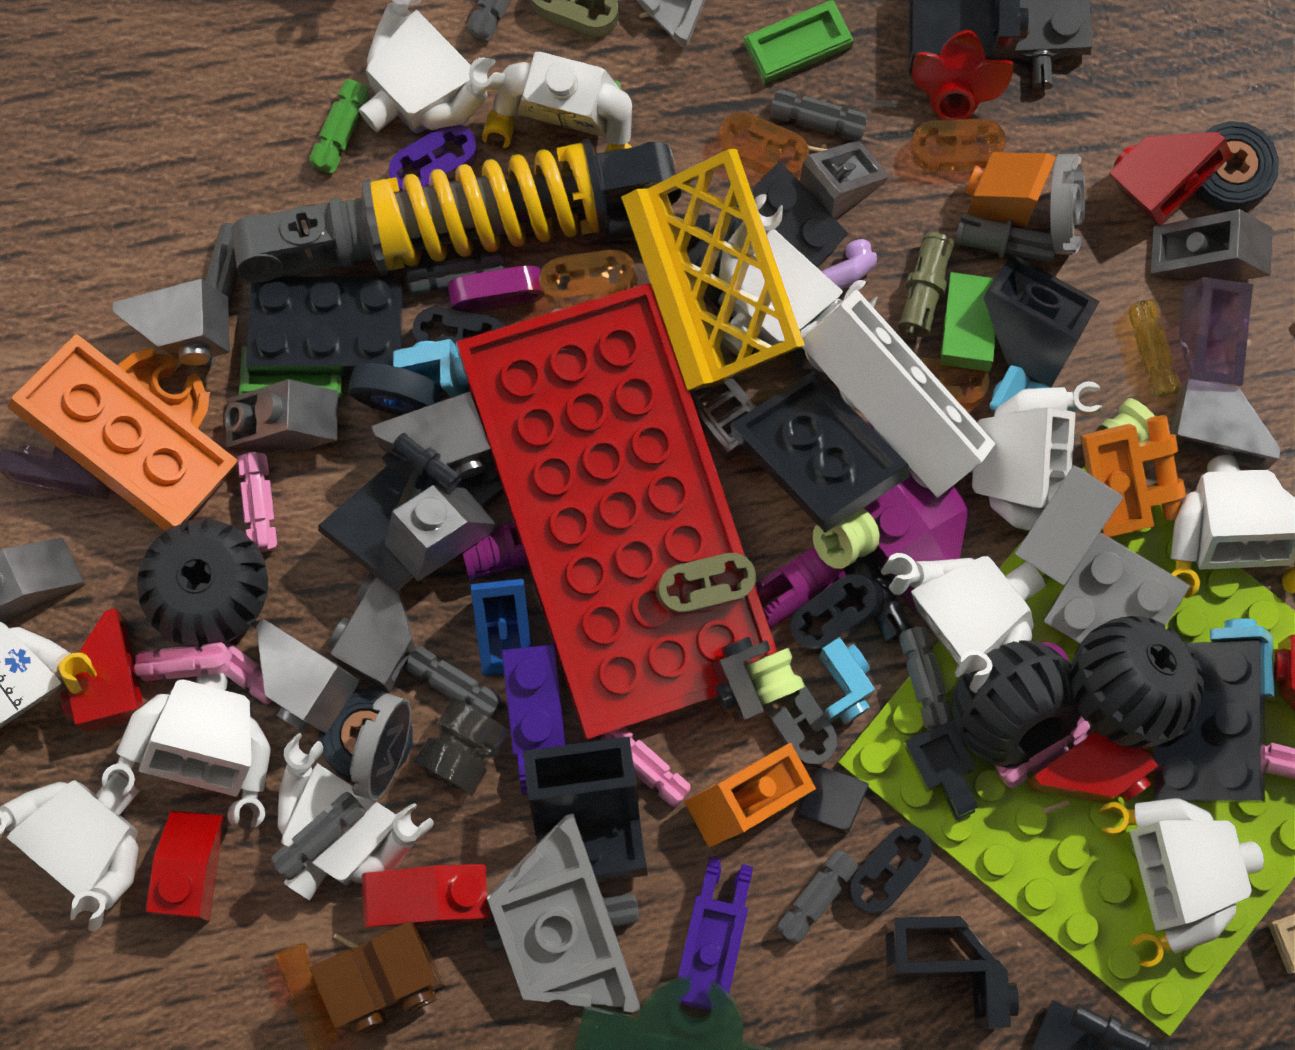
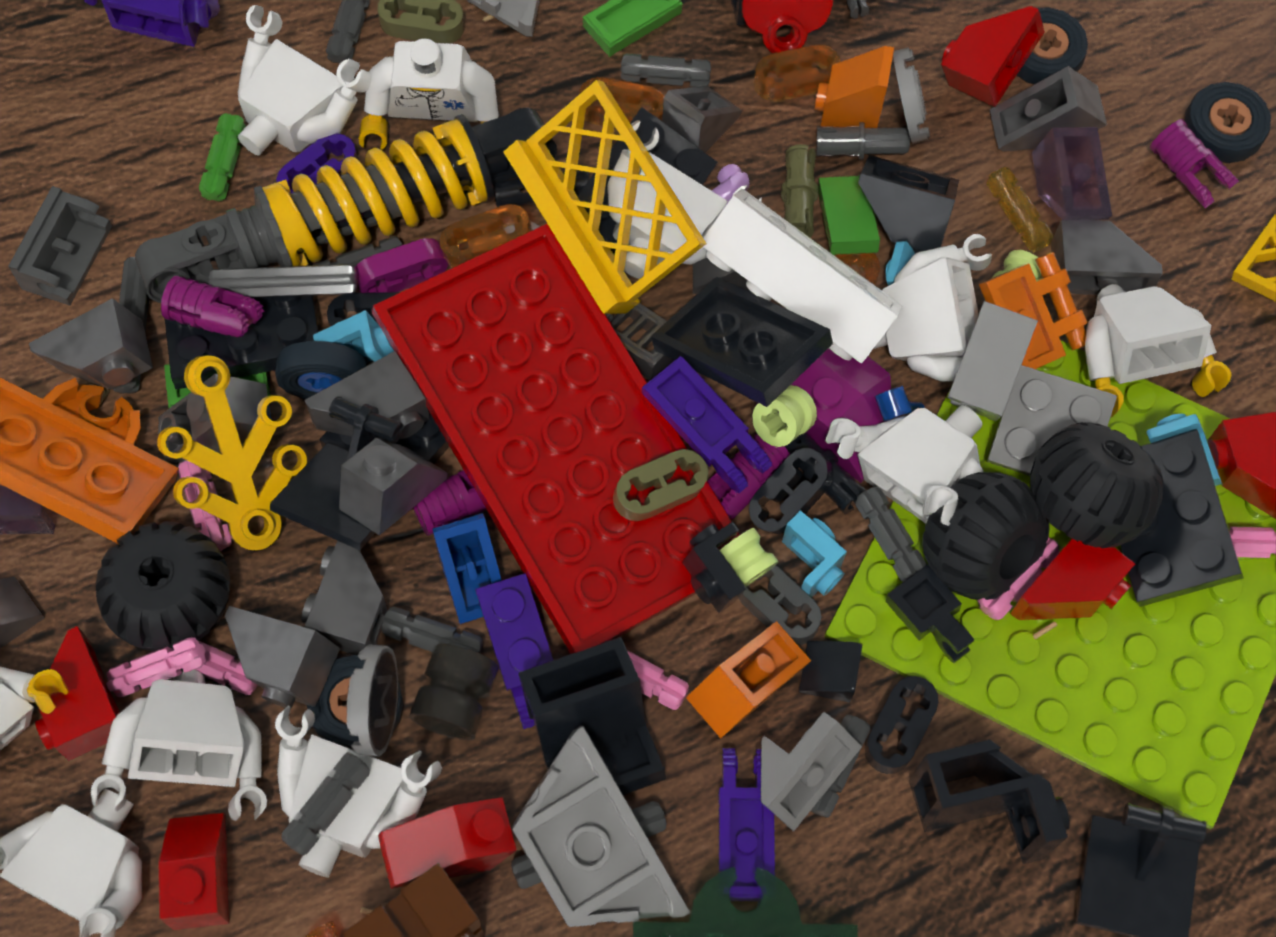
camera: 15 degrees left, 10 degrees down
(160, 197) = (59, 246): none -> dark grey hinge
(294, 472) = (236, 461): none -> yellow plant
(296, 302) = (209, 307): none -> magenta hinge
(374, 286) = (286, 280): none -> dark grey axle
(763, 525) = (704, 421): none -> dark purple hinge
(773, 905) = (799, 779): none -> light grey slope
(963, 541) = (895, 403): none -> blue hand
(1188, 869) = (1190, 655): white torso -> none

